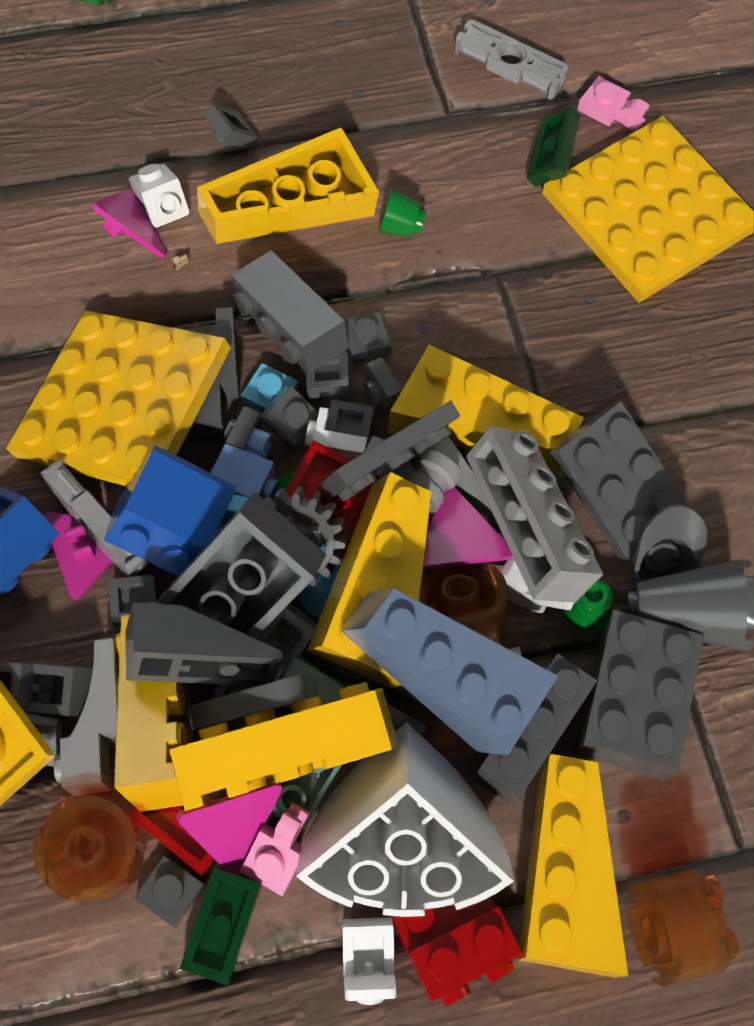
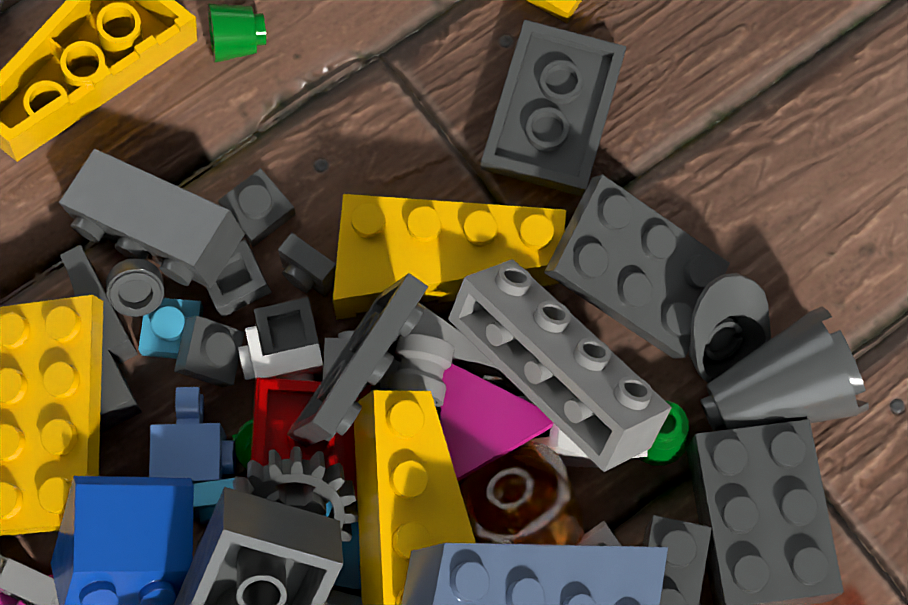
camera: 20 degrees left, 5 degrees up
(239, 430) = (159, 397): dark grey plate -> none
(256, 349) = (135, 287): none -> dark grey tile
(604, 352) = (553, 108): none -> dark grey plate

